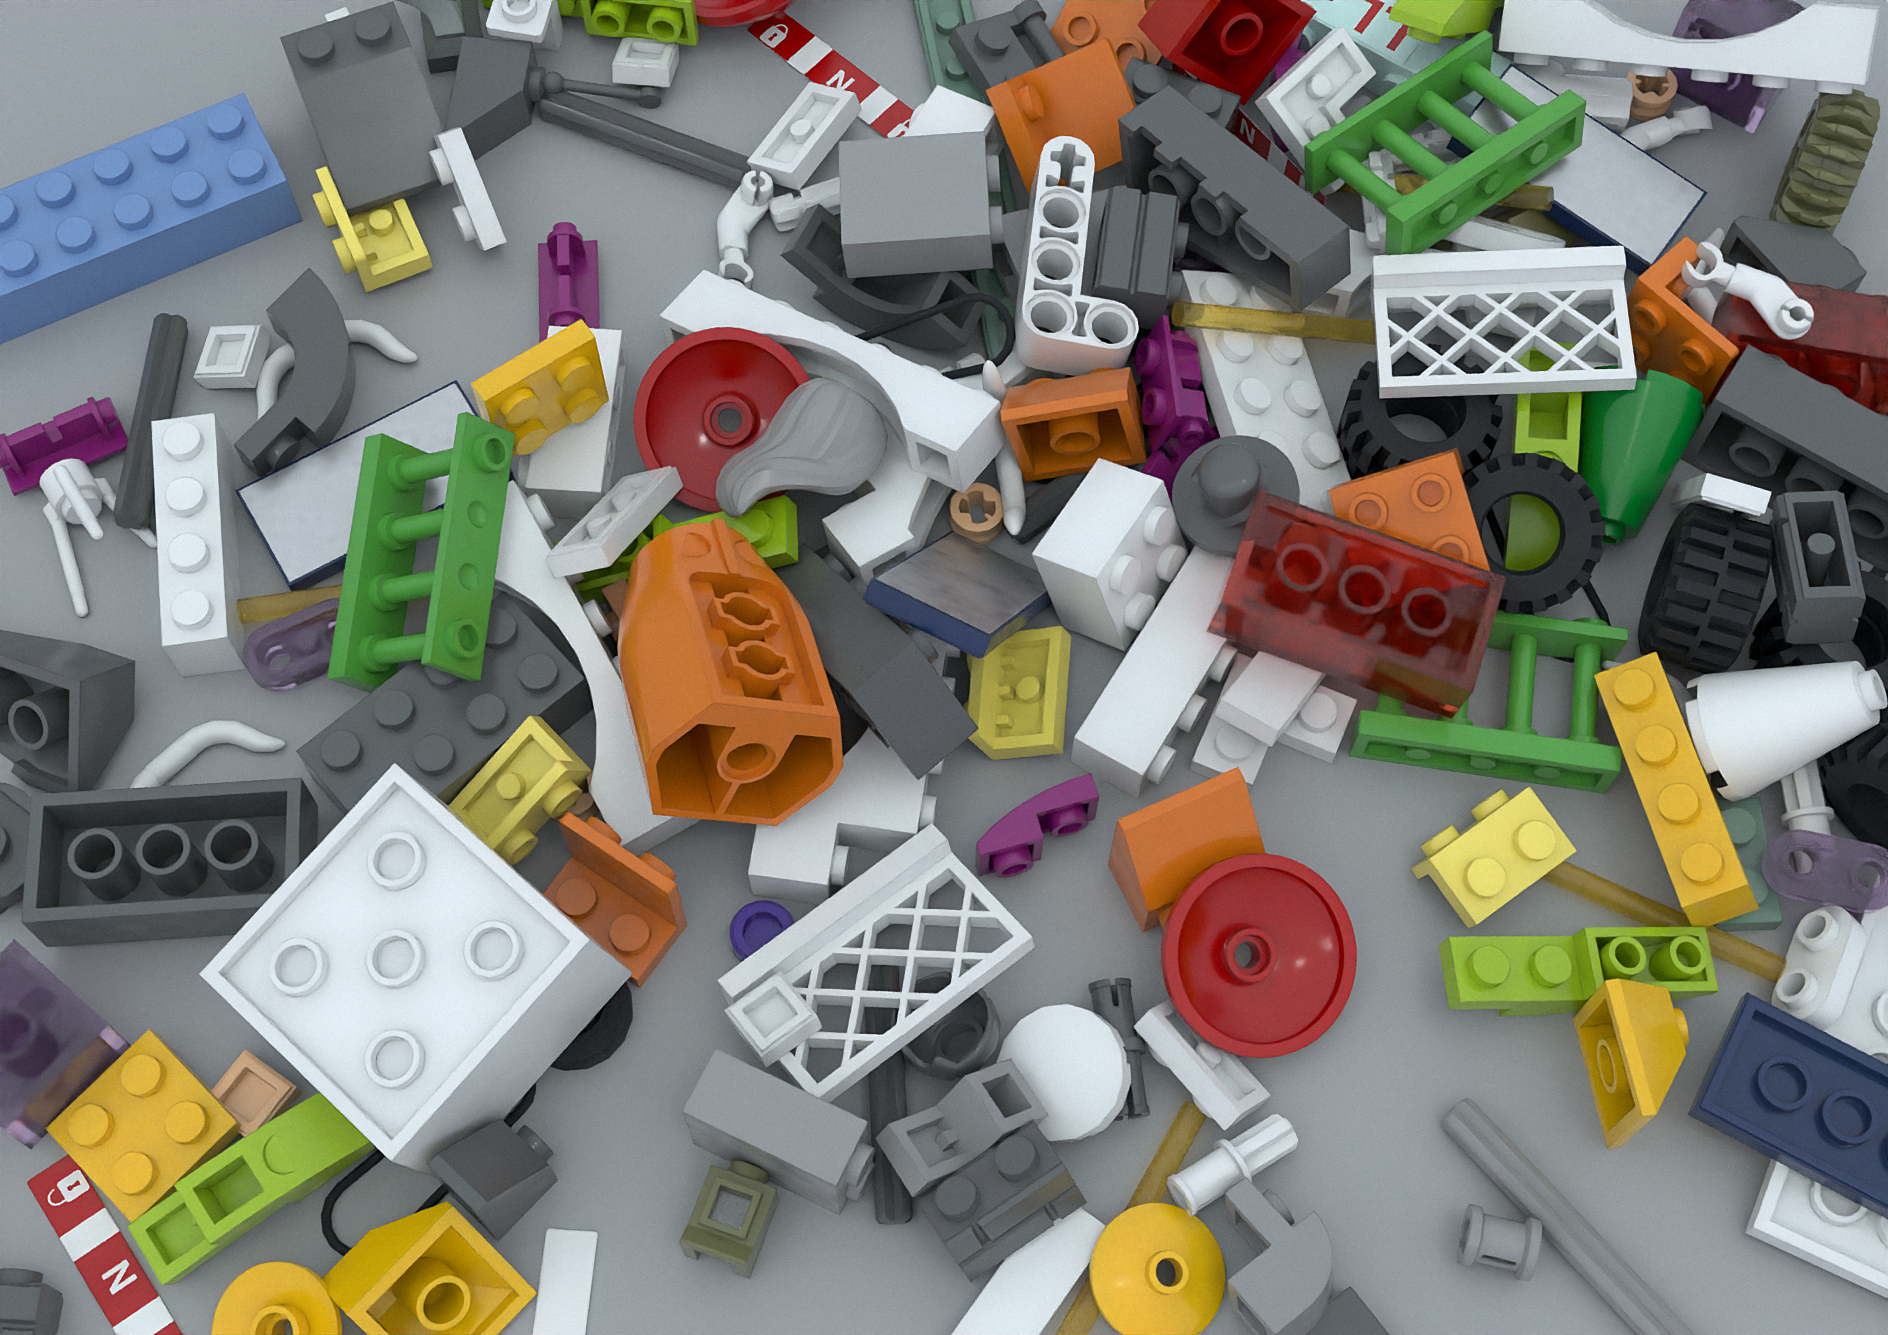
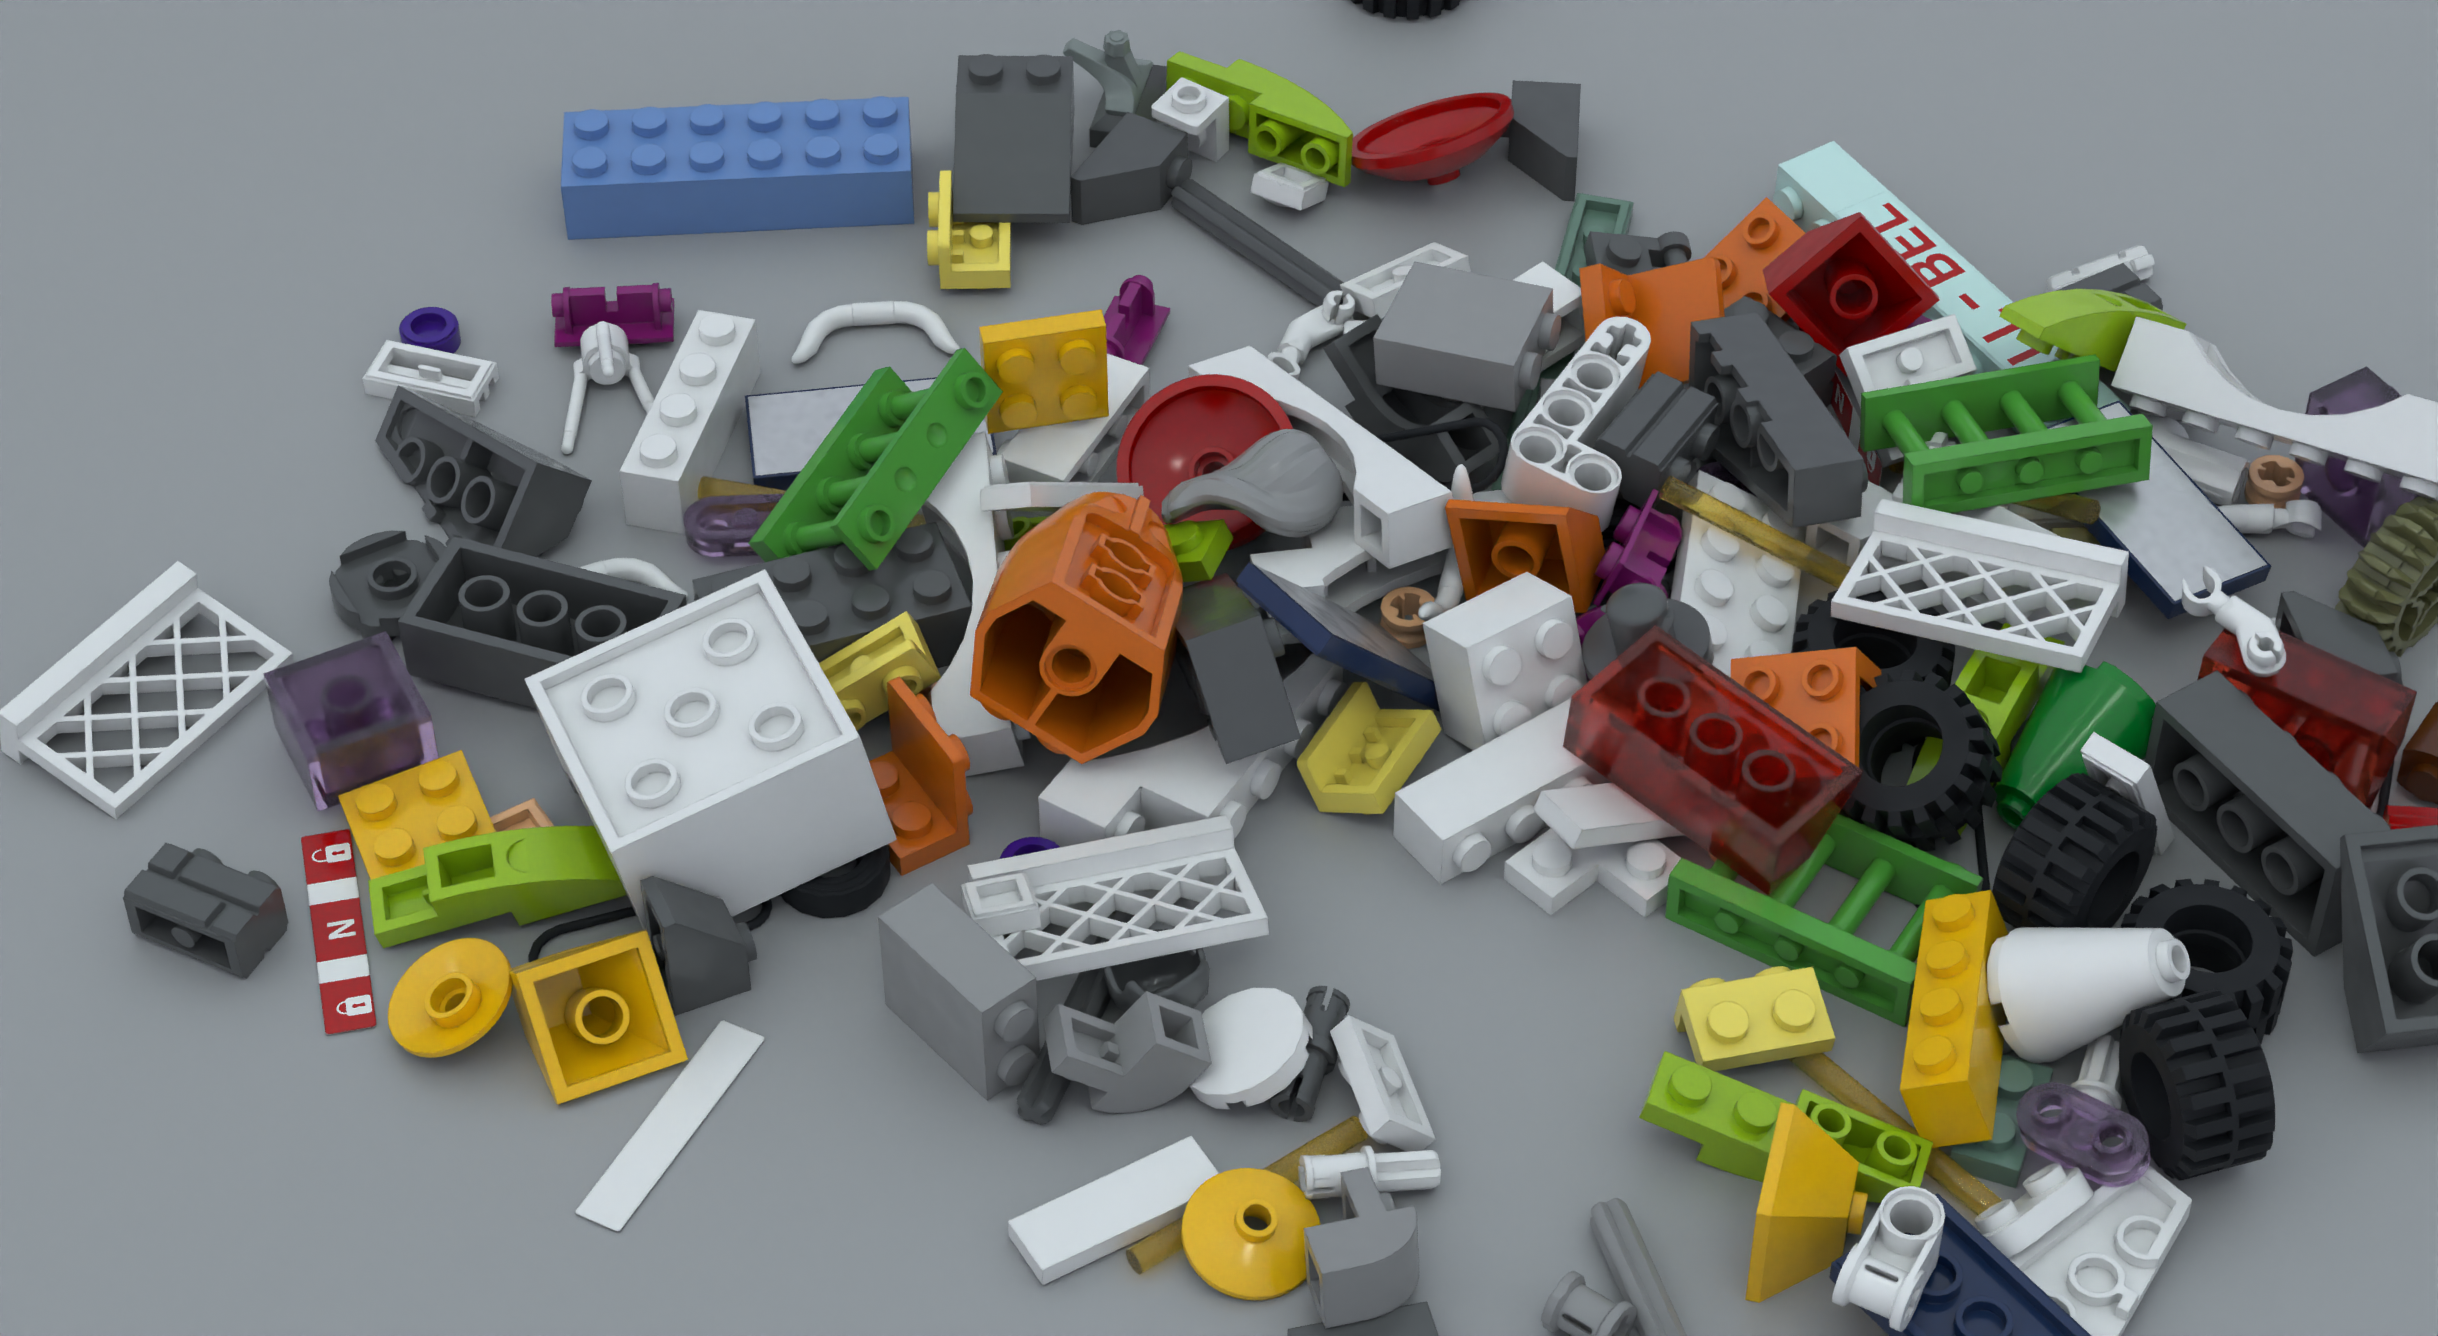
camera: 25 degrees right, 20 degrees down
(153, 403) = (722, 297): dark grey axle -> none
(233, 356) = (796, 299): white tile -> none
(320, 383) = (858, 336): dark grey arch -> none
(456, 166) = (1065, 199): white plate -> none
(648, 96) = (1278, 216): dark grey hinge -> none
(731, 1216) = (891, 1049): olive window -> none
(829, 68) = (1452, 229): red sticker -> none
(1001, 1200) = (1132, 1110): dark grey brick -> none
(1018, 837) = (1304, 859): magenta slope -> none
(1179, 837) = (1454, 910): orange slope -> none
(1298, 961) = (1486, 971): red dish -> none
(1669, 333) = (2162, 638): orange bracket -> none
(1764, 1115) = (1891, 1267): none -> white piece
(1815, 568) = (2174, 855): dark grey brick -> none

